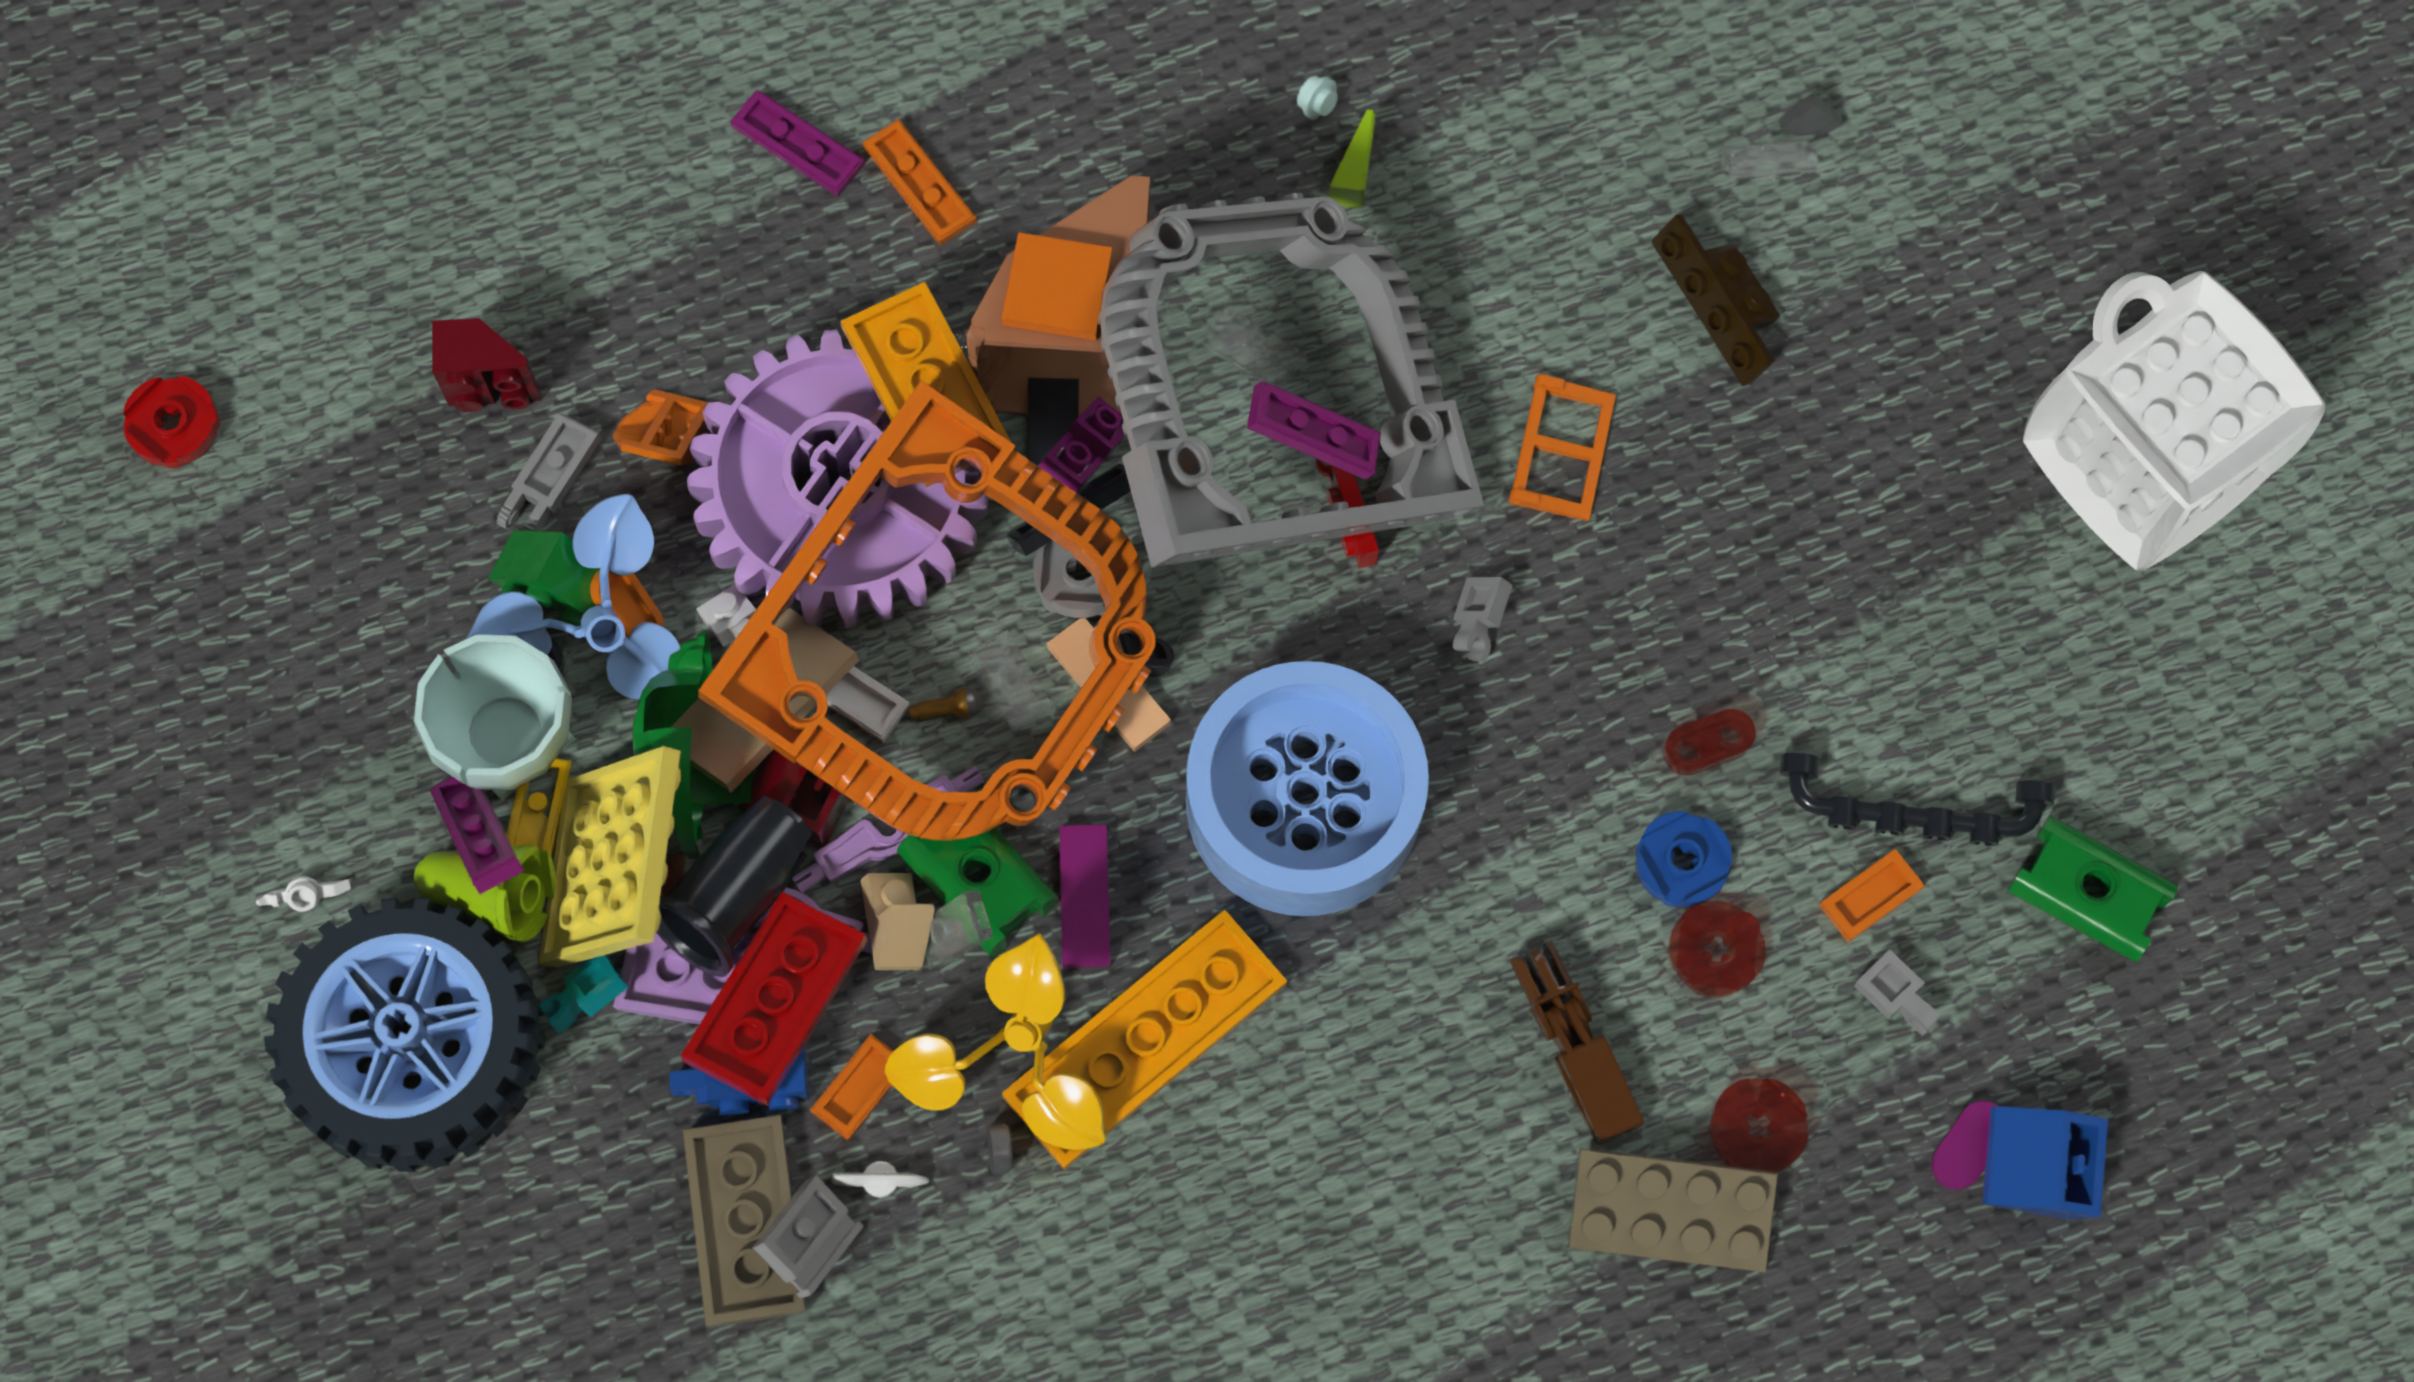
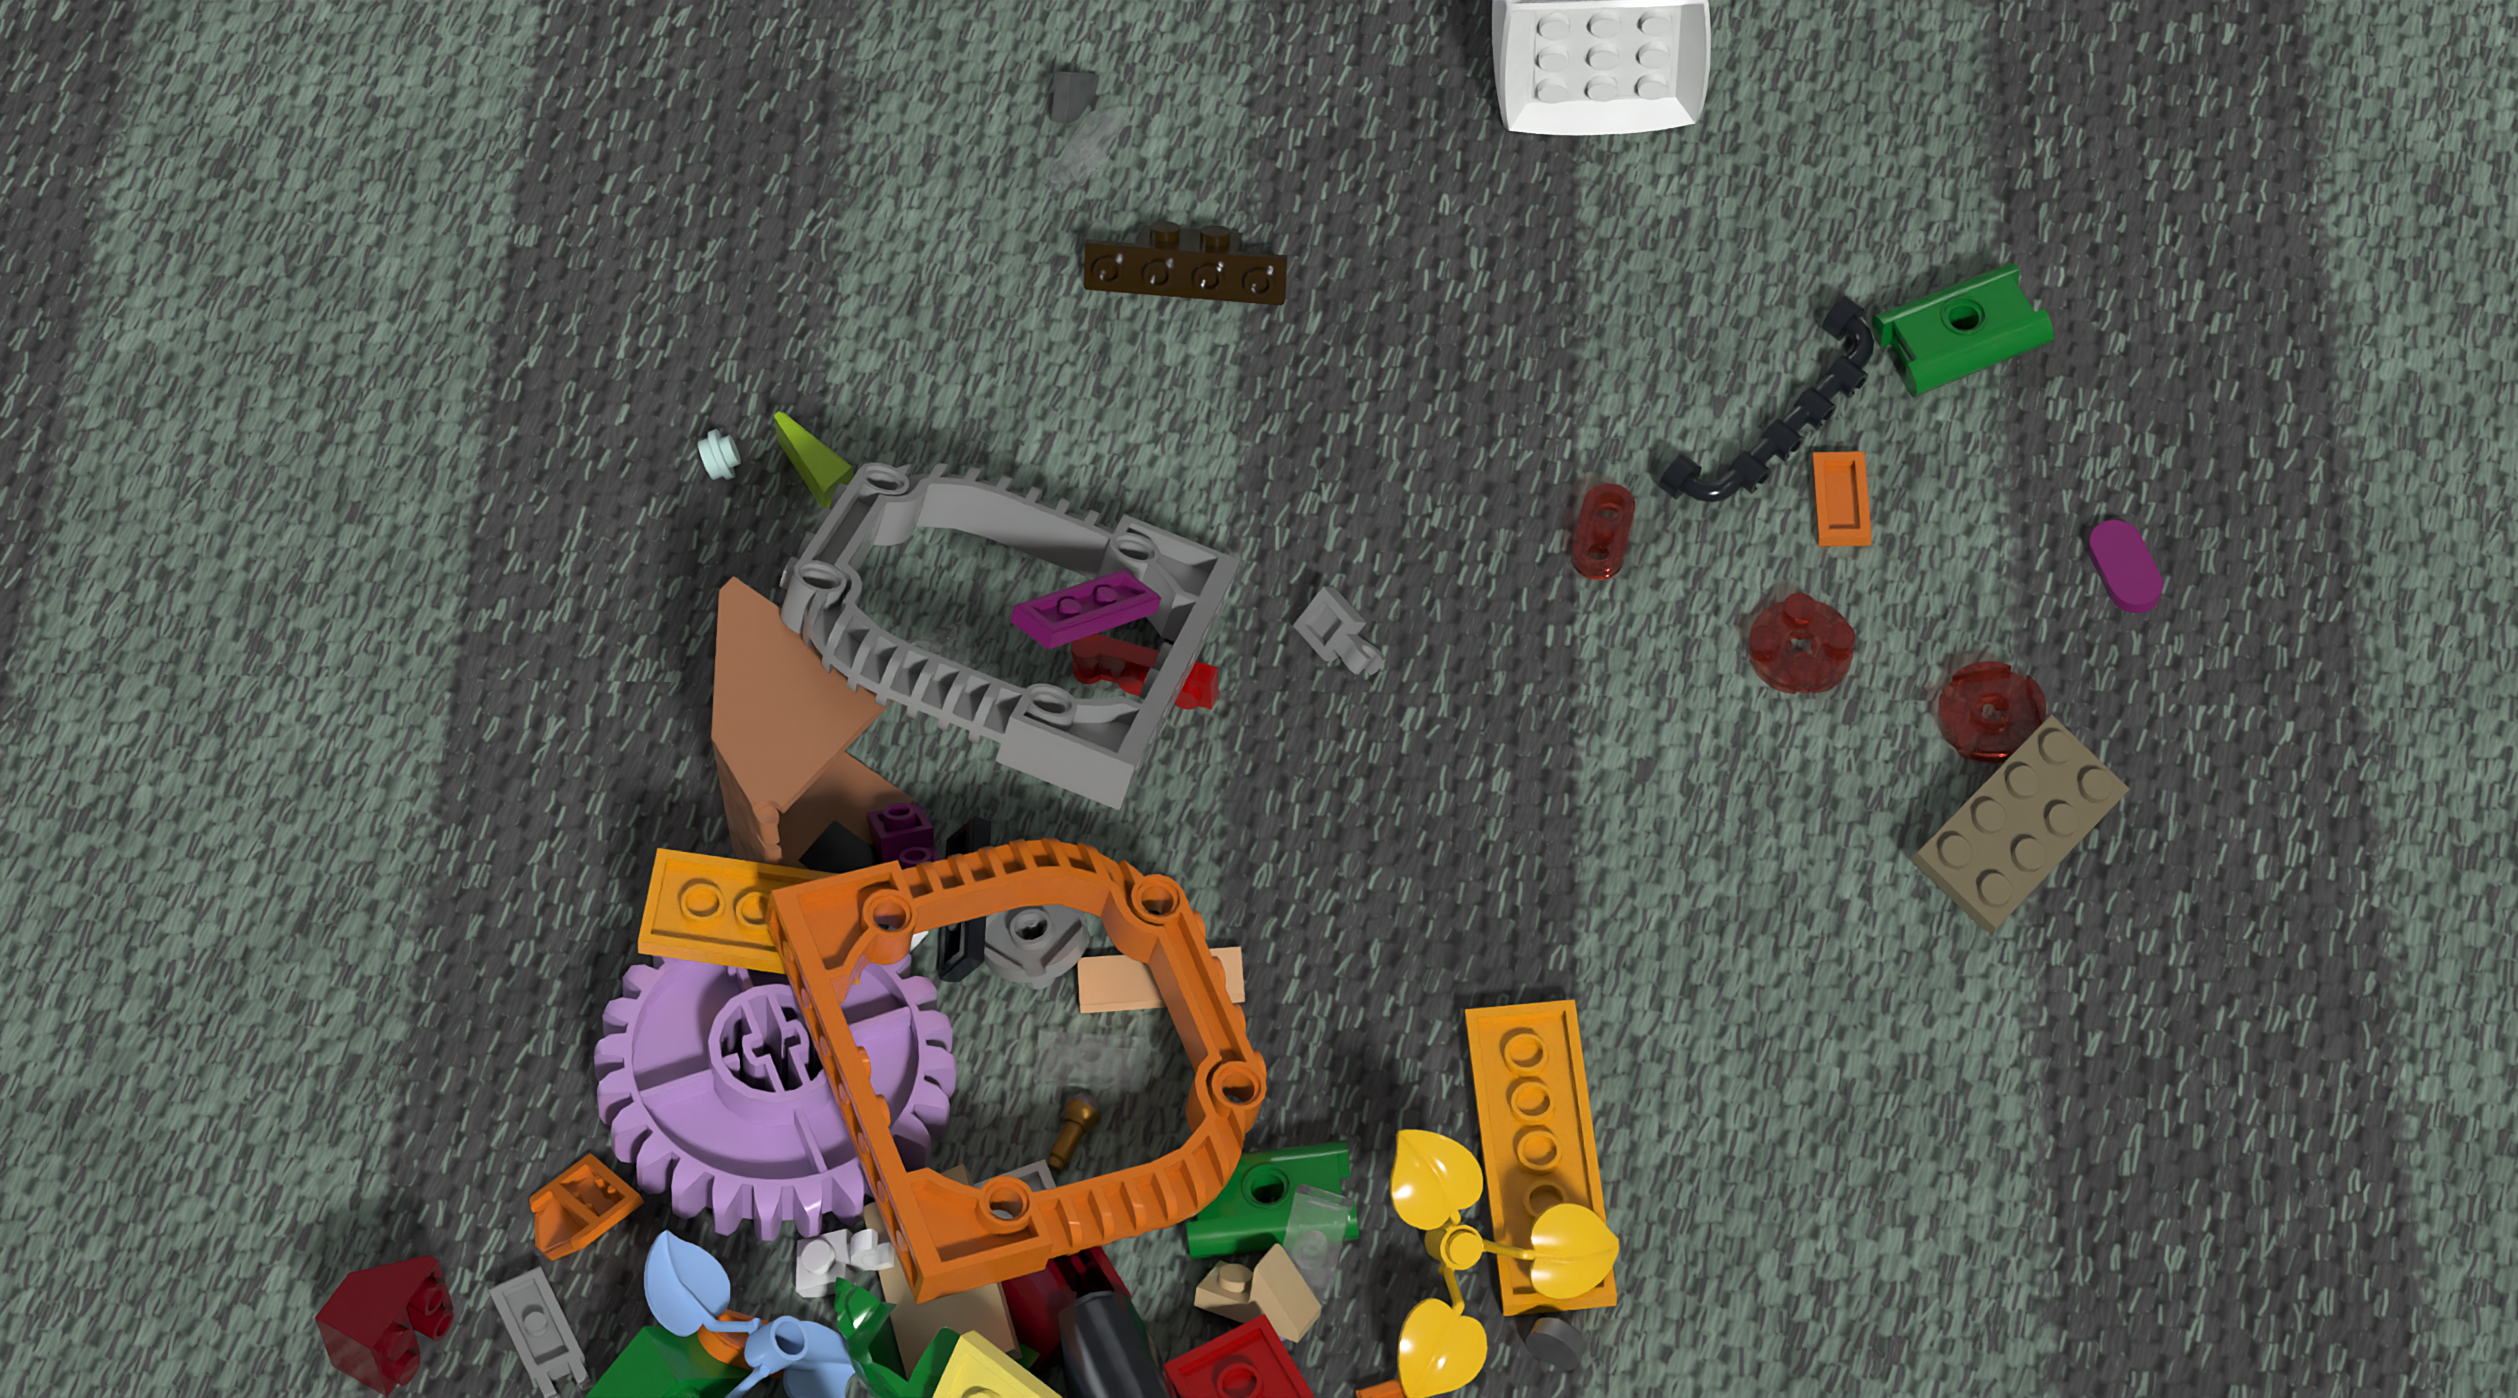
camera: 50 degrees left, 15 degrees down
(797, 143) = (378, 917): magenta tile -> none
(866, 843) = (1158, 1282): lavender piece -> none
(919, 182) = (512, 837): orange tile -> none
(1056, 286) = (782, 711): orange tile -> none
(1084, 896) = (1341, 1114): magenta tile -> none
(1349, 725) = (1360, 797): light blue wheel -> none
(1560, 388) = (1157, 453): orange window -> none
(1587, 1067) = (1834, 808): reddish brown arm -> none
(1690, 834) = (1693, 644): blue plate -> none
(1893, 988) = (1942, 533): light grey plate -> none
(2045, 1162) = (2187, 508): blue slope -> none

